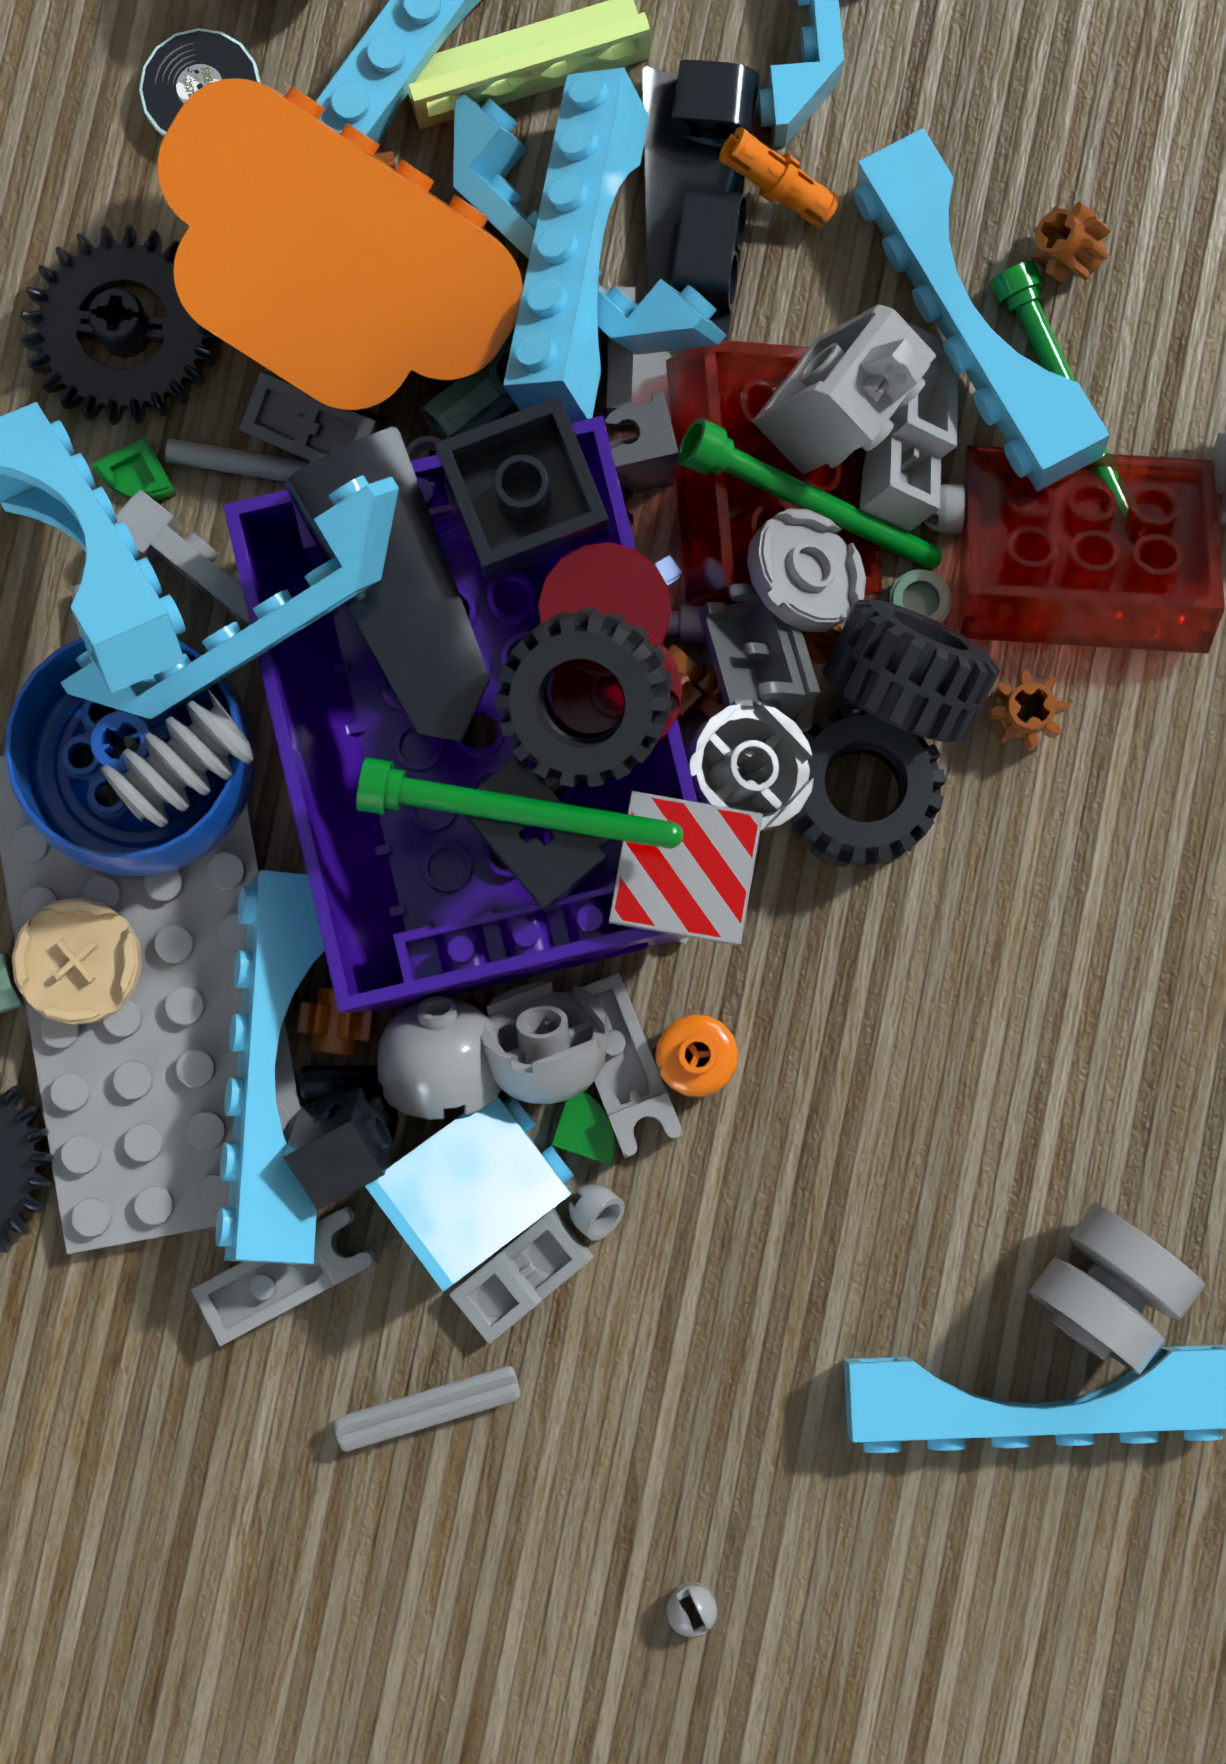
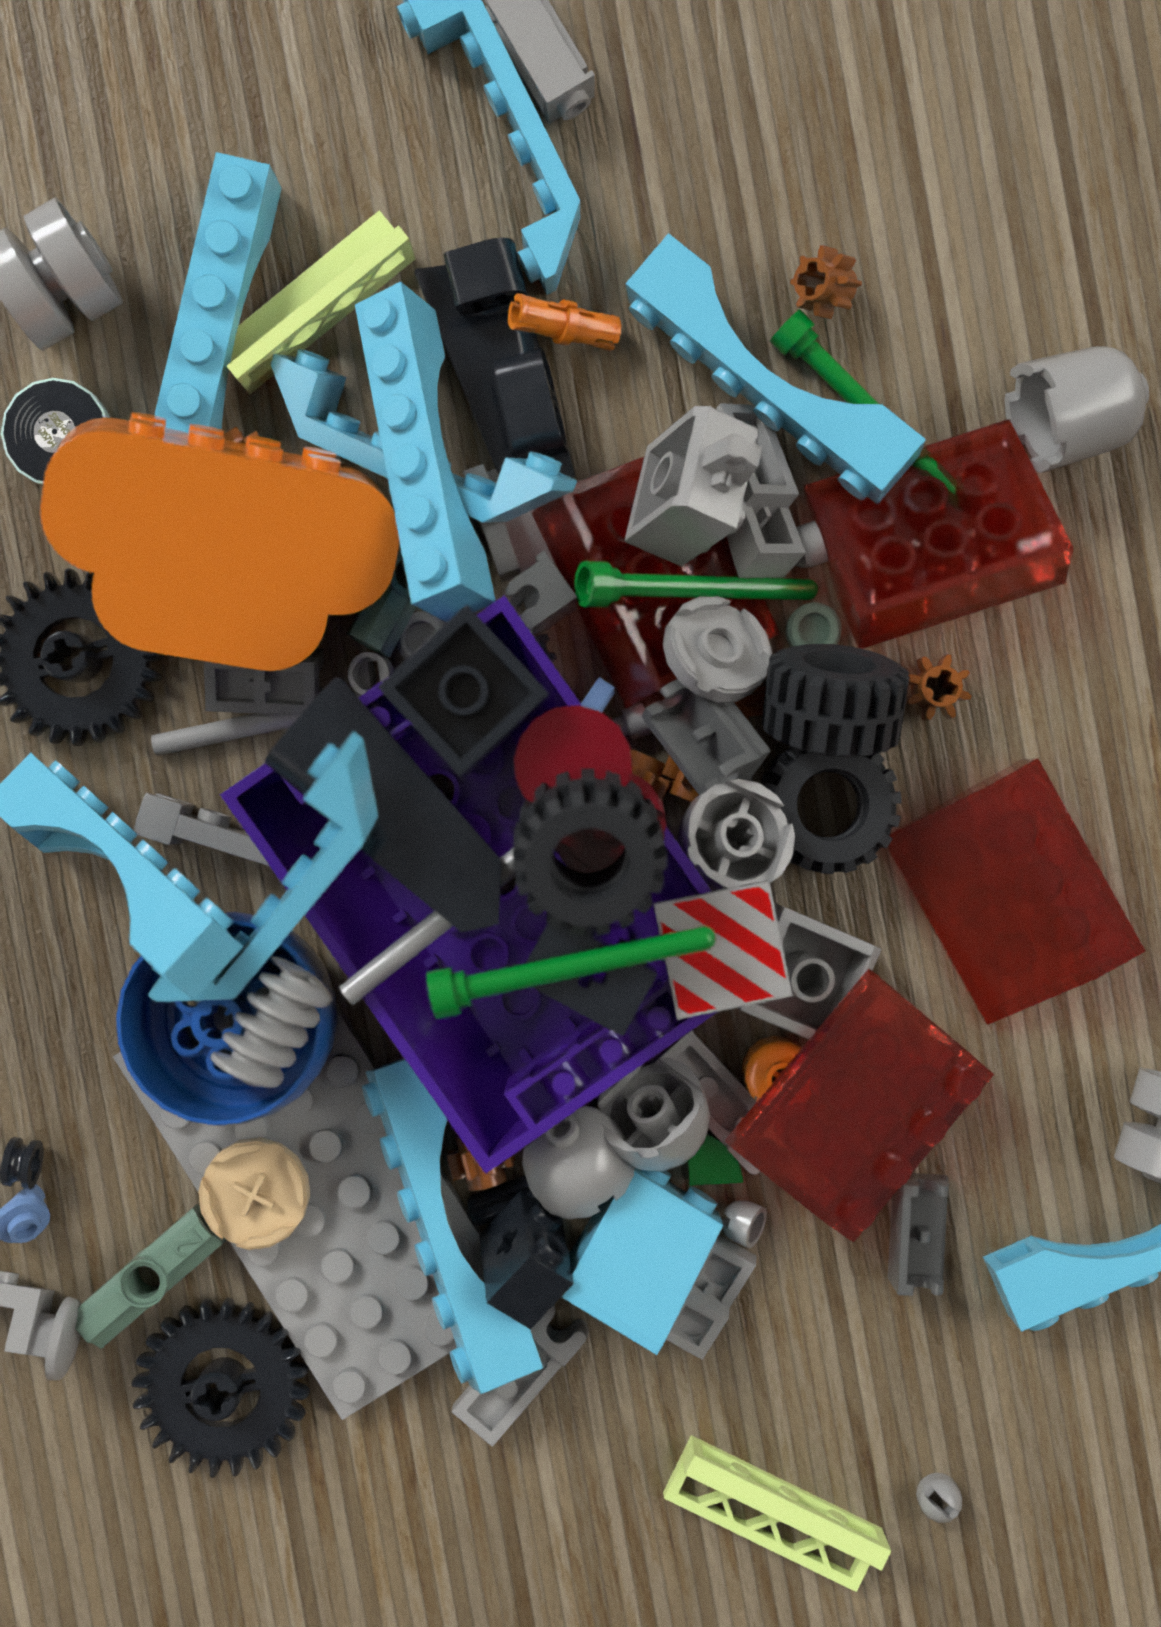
camera: 25 degrees left, 5 degrees up
(133, 470) = (136, 773): green tile -> none
(355, 736) = (407, 947): none -> light grey bar
(427, 1408) = (673, 1426): light grey axle -> none
(519, 1543) = (779, 1503): none -> yellowish green fence
(770, 1117) = (859, 1106): none -> clear red slope
(780, 970) = (821, 972): none -> light grey hinge
(783, 1297) = (918, 1234): none -> dark grey hinge
(1026, 960) = (1013, 892): none -> clear red slope

